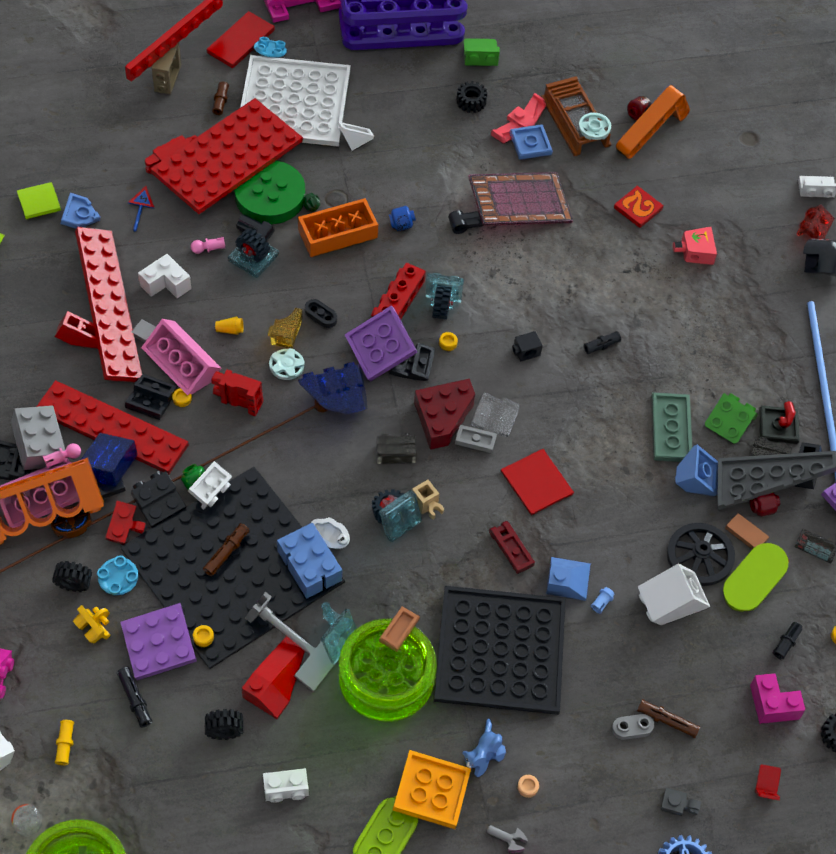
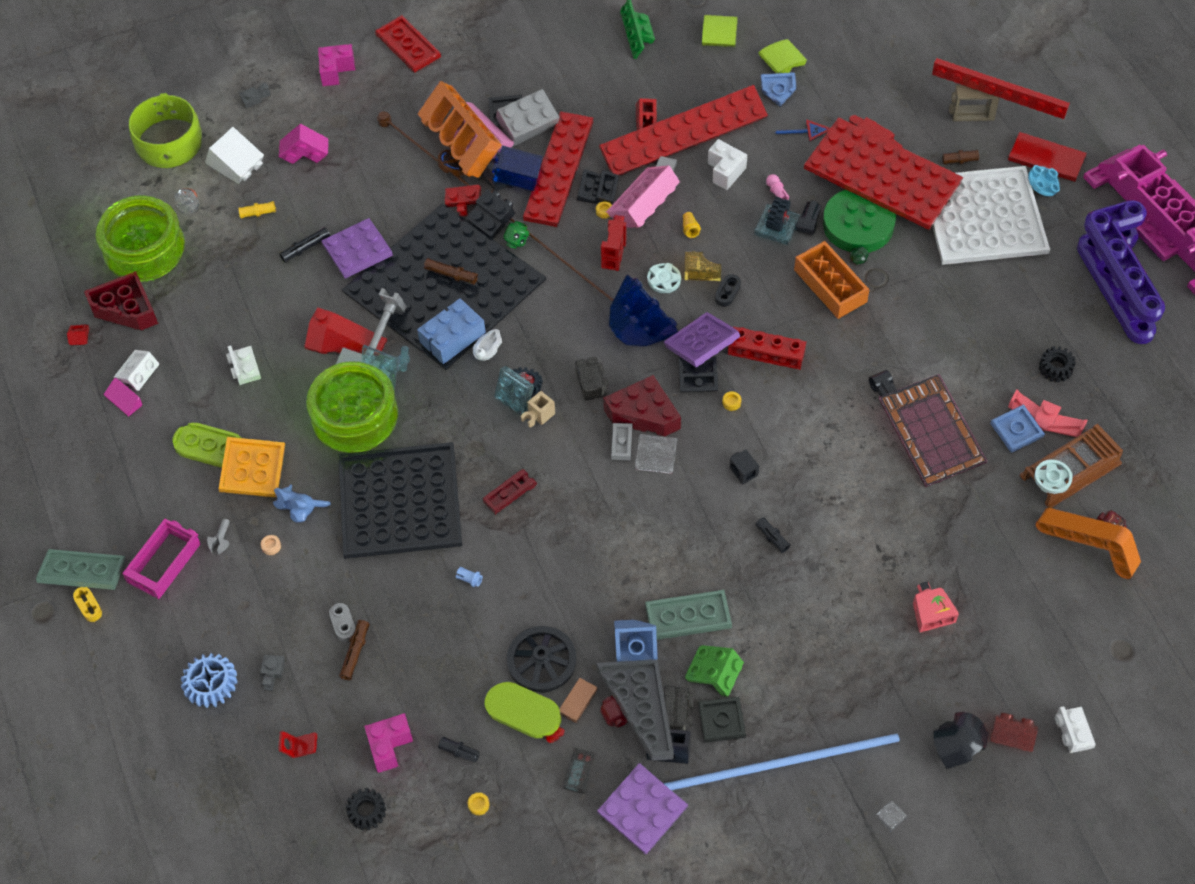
camera: 85 degrees right, 0 degrees up
(72, 451) = (507, 133): bright pink pin -> none
(72, 576) = (400, 173): black tyre -> none
(94, 620) = (364, 201): yellow hips -> none
(117, 576) = (412, 207): medium azure dish -> none
(203, 636) = (366, 275): yellow tile -> none
(210, 484) = (507, 242): white bracket -> none
(224, 724) = (285, 305): black tyre -> none
(355, 135) = (959, 271): white slope -> none
(399, 629) = (378, 395): nougat tile -> none
(402, 218) = (866, 331): blue head -> none
(443, 292) = (775, 380): plate -> none
(481, 52) = (1126, 361): bright green bracket -> none
(537, 481) = (590, 504): red piece -> none
(568, 578) = (487, 543): medium blue slope -> none
(638, 206) = (970, 545): red tile -> none
(672, 595) = (483, 634): white slope -> none
(790, 414) = (733, 721): red arm -> none

